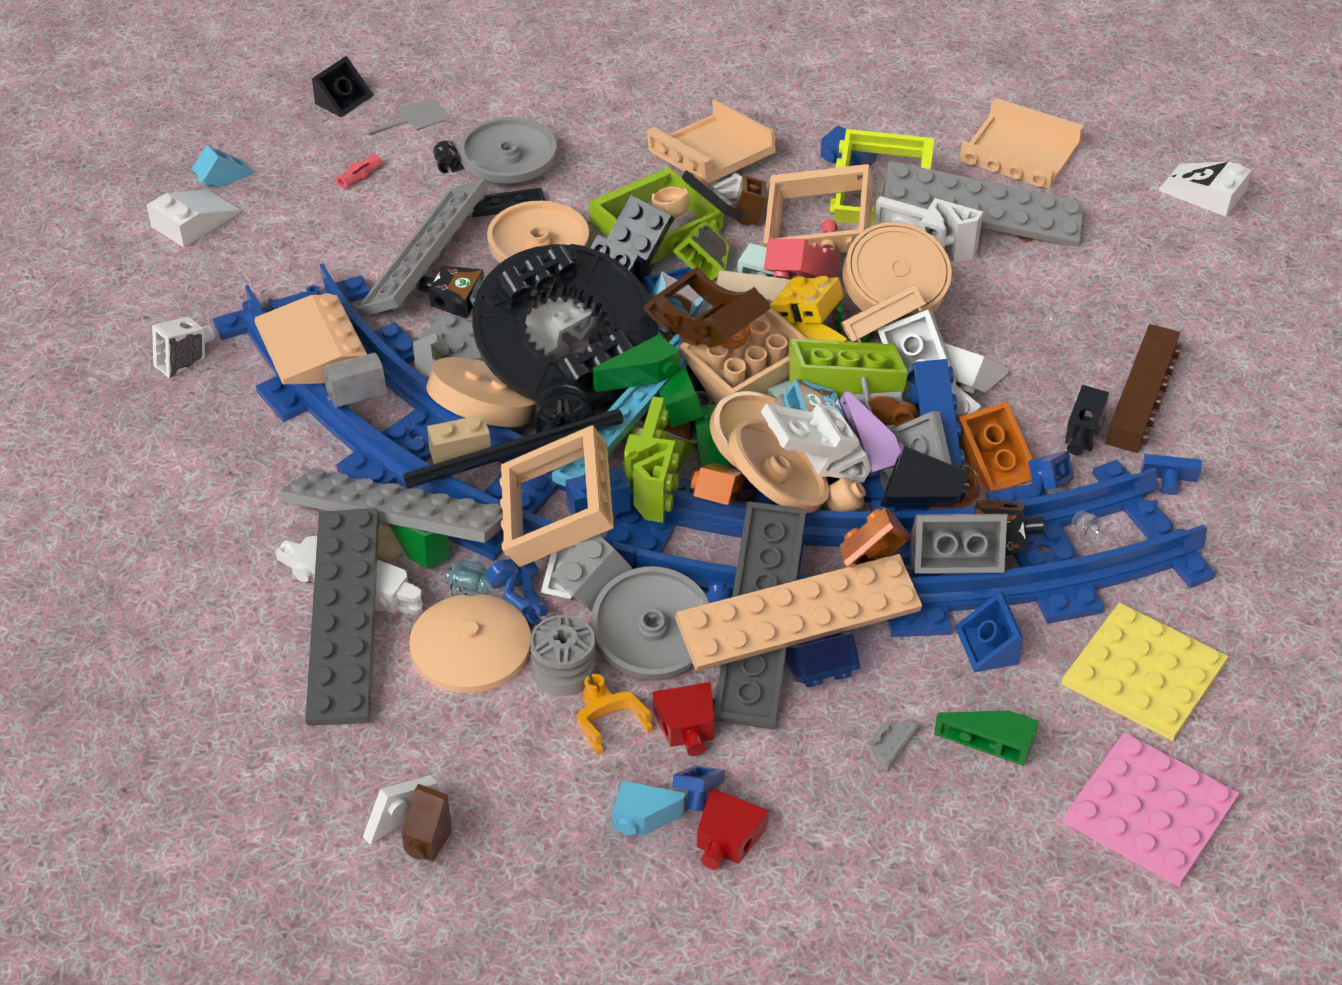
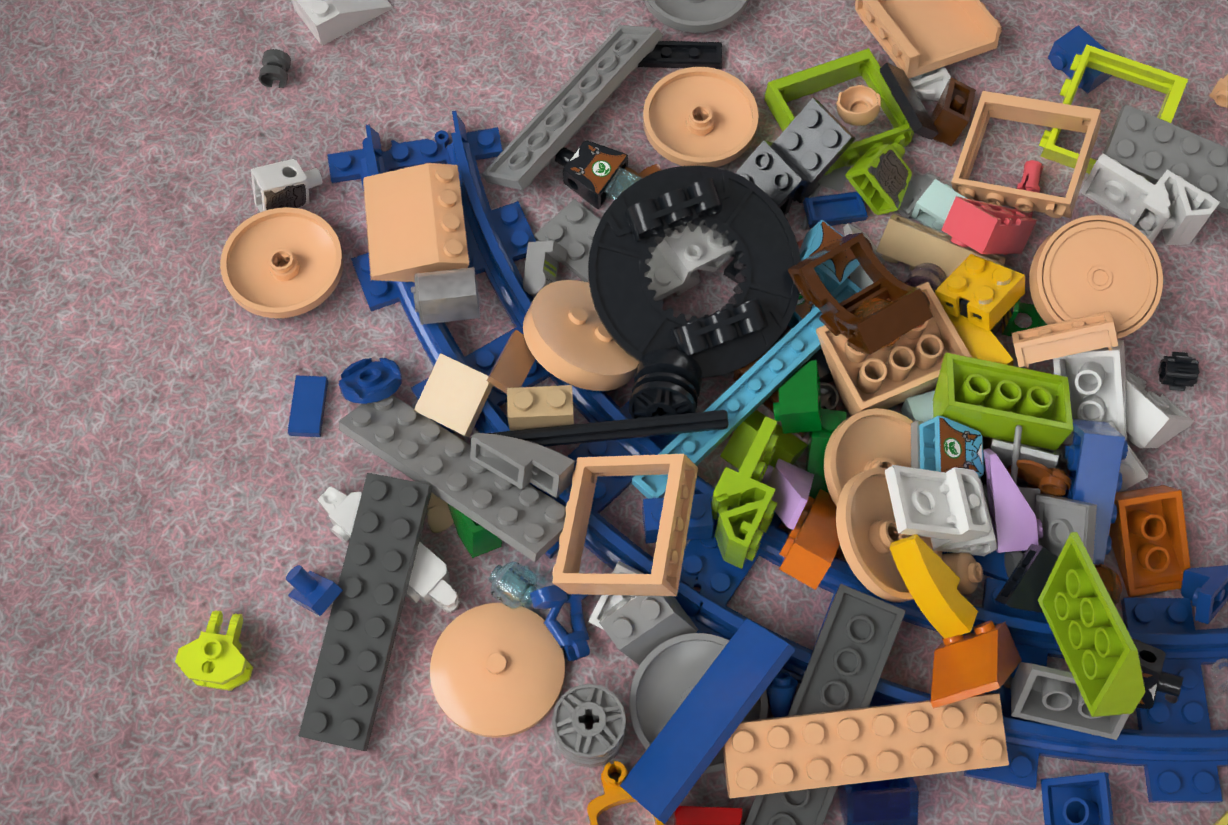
camera: 15 degrees right, 20 degrees up
(146, 266) = (275, 67): none -> dark grey wheel
(194, 395) = (282, 262): none -> light nougat dish
(216, 675) = (216, 658): none -> neon yellow hinge
(245, 495) = (308, 406): none -> blue tile
(289, 611) = (312, 590): none -> blue tile
(295, 465) = (370, 381): none -> blue tile
(379, 453) = (454, 395): none -> tile
(426, 413) = (512, 364): none -> medium nougat tile
(453, 479) = (523, 462): none -> light grey slope
(639, 366) = (765, 350): green slope -> none
(662, 618) = (706, 719): none -> blue tile
(691, 457) = (791, 490): none -> lavender slope
(823, 491) = (933, 587): none -> yellow slope
(955, 472) = (1091, 633): none -> lime slope
(986, 336) = (1178, 371): none -> black gear

